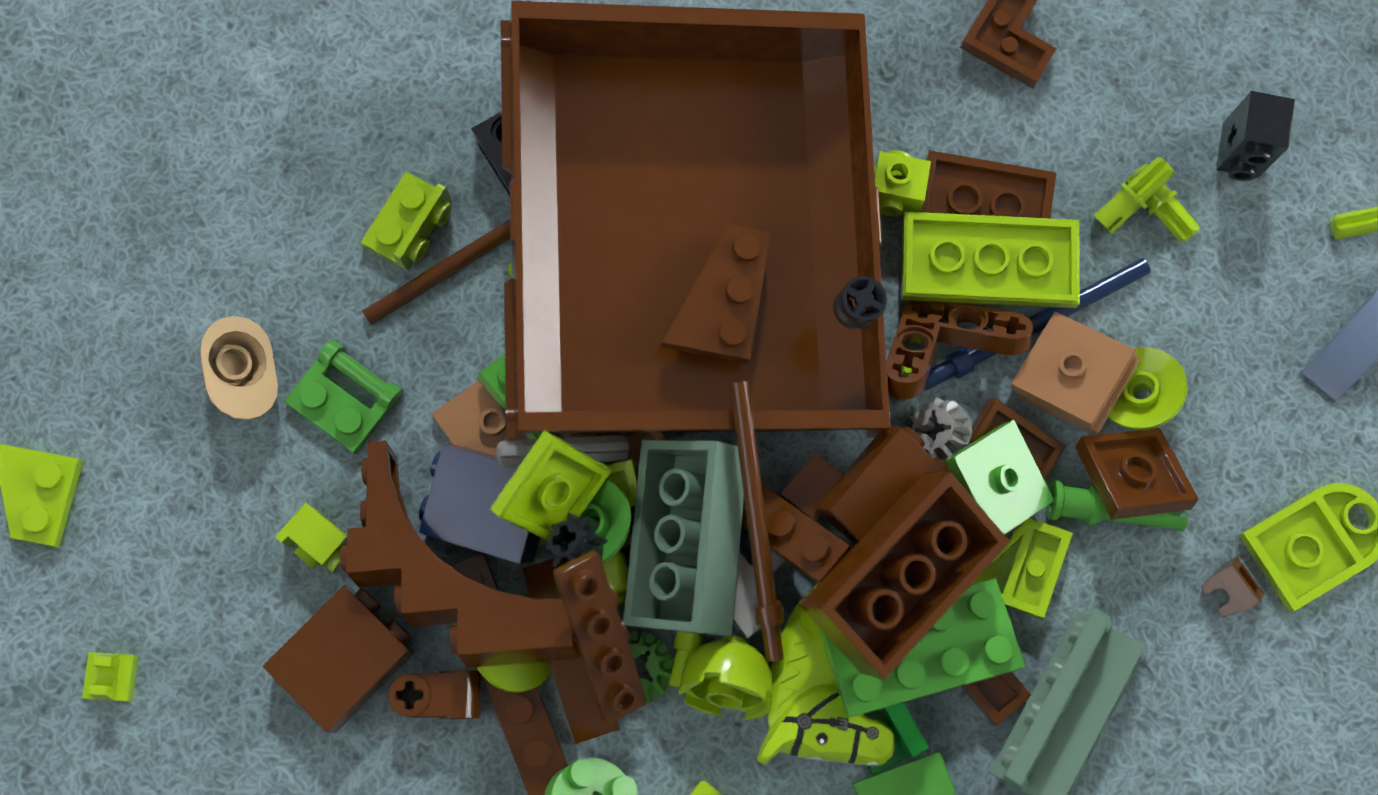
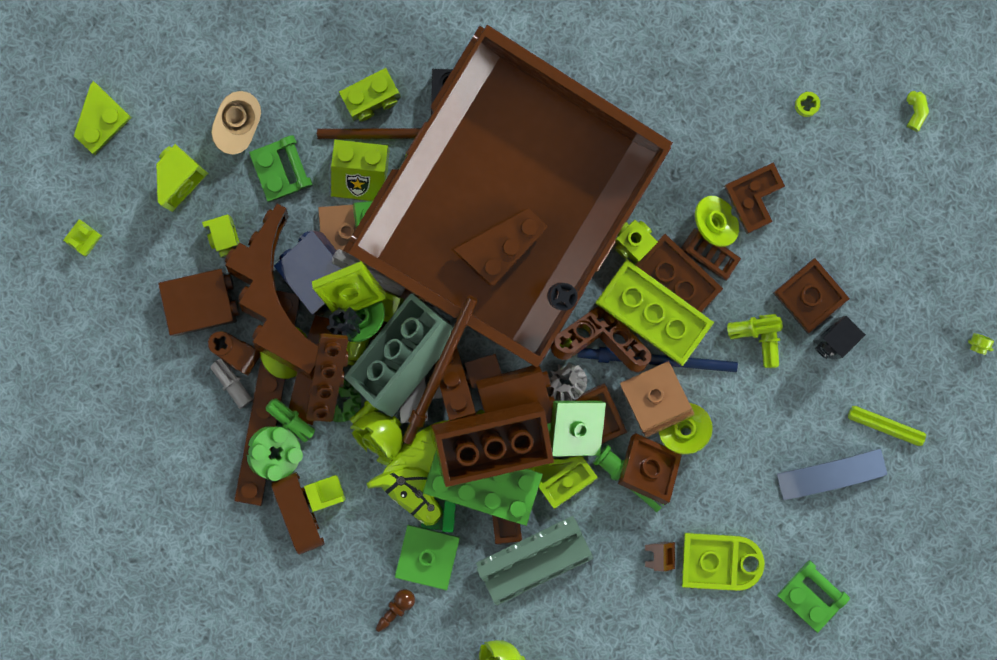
camera: 35 degrees right, 10 degrees up
(198, 494) = (176, 176): none -> lime slope
(455, 326) = (358, 169): none -> lime slope
(462, 746) = (231, 383): none -> light grey axle
(583, 741) = (290, 419): none -> bright green axle
(982, 127) = (688, 248): none -> reddish brown slope
(985, 94) = (716, 221): none -> lime dish
(1173, 112) = (811, 295): none -> reddish brown plate

